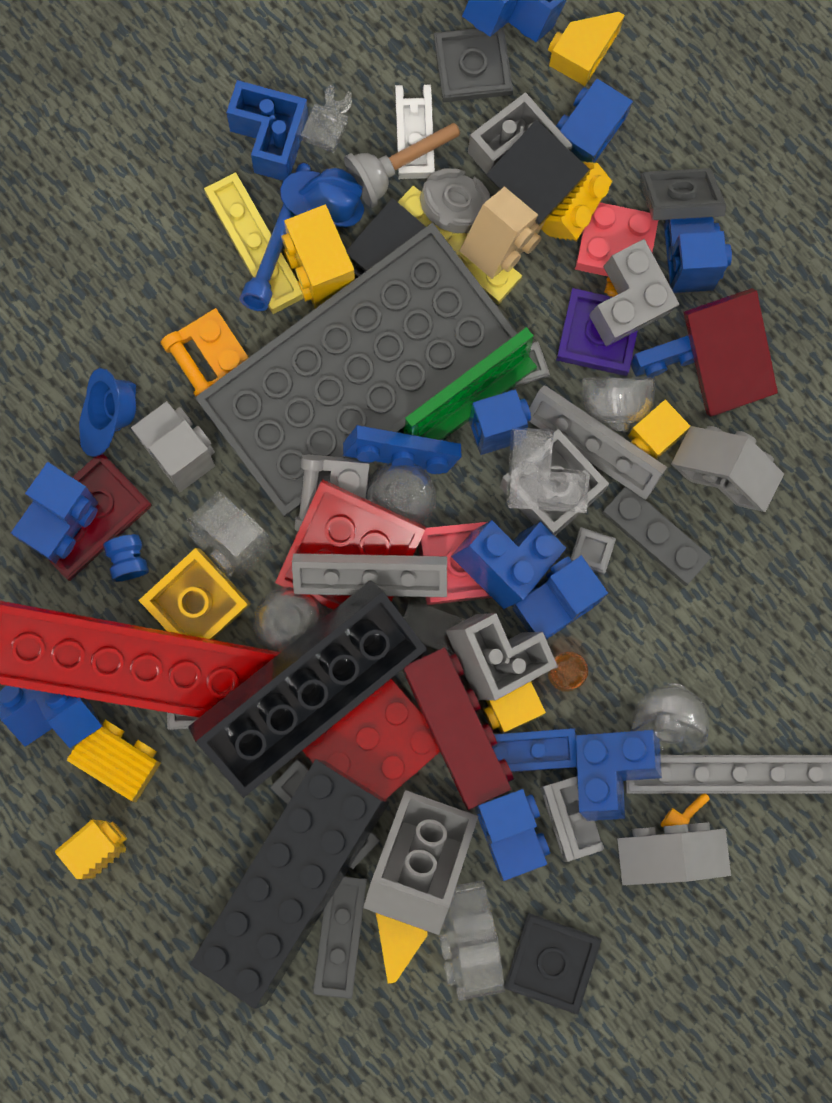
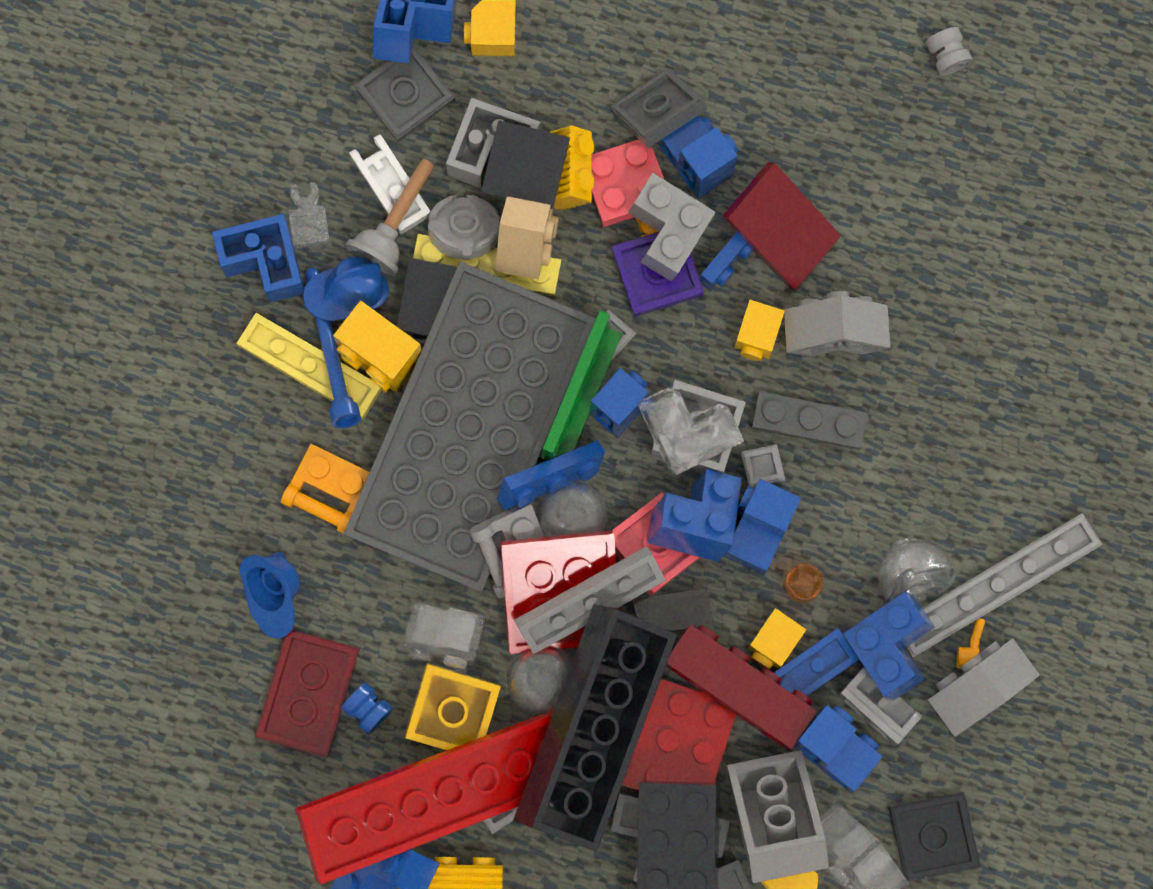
camera: 25 degrees left, 0 degrees up
(56, 513) = (286, 707): blue brick -> none
(176, 447) = (350, 585): light grey brick -> none
(497, 663) = (741, 610): light grey brick -> none
(594, 120) = (543, 86): blue brick -> none
(597, 442) = (712, 370): light grey plate -> none
(618, 399) = (709, 322): clear cylinder -> none

